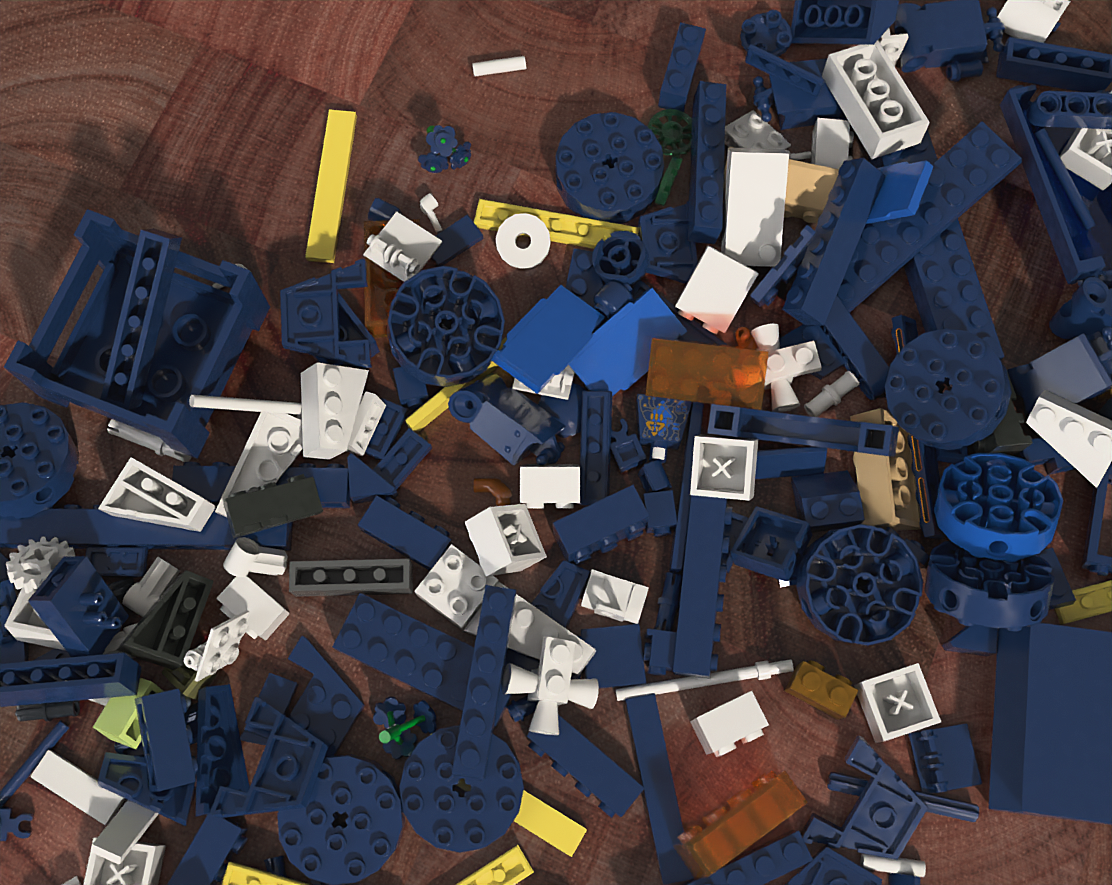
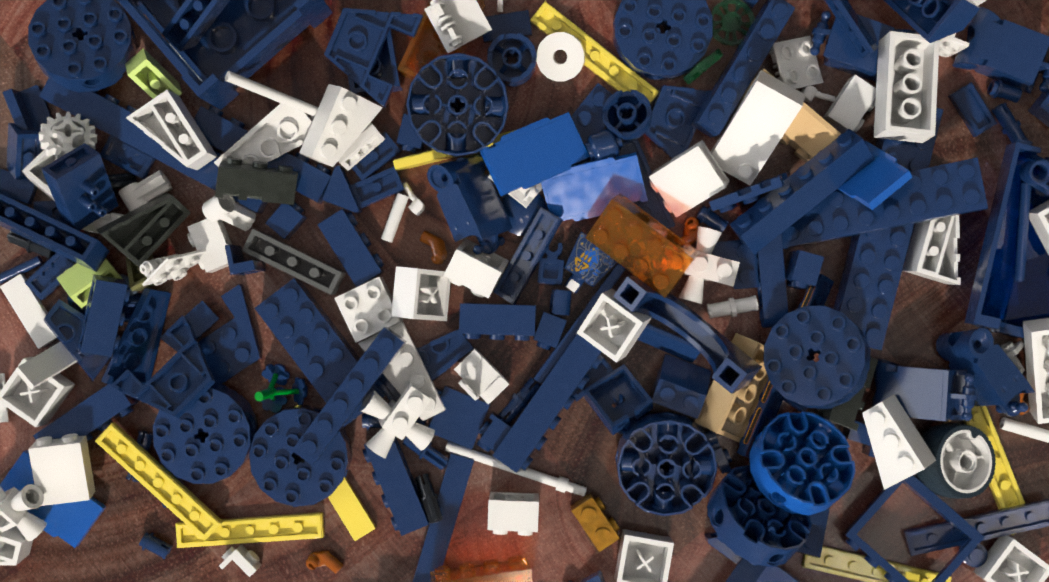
camera: 30 degrees right, 15 degrees up
(82, 737) = (45, 280): none -> dark blue plate
(102, 457) = (151, 75): none -> yellowish green brick
(300, 609) = (236, 262): none -> dark blue panel
(321, 539) = (287, 220): none -> dark blue brick
(435, 481) = (394, 217): none -> white piece
(453, 457) = (416, 206): none -> white hand
(478, 250) = (512, 45): none -> dark blue brick
(600, 711) = (428, 453): none -> dark blue axle
(628, 761) = (428, 499): none -> black axle
(754, 319) = (711, 219): none -> dark blue pin
(879, 317) = (802, 269): none -> dark blue brick
(945, 100) = (972, 109): none -> dark blue tile
(984, 93) = (1009, 124): none -> dark blue pin
(993, 238) = (935, 251): none -> white wedge

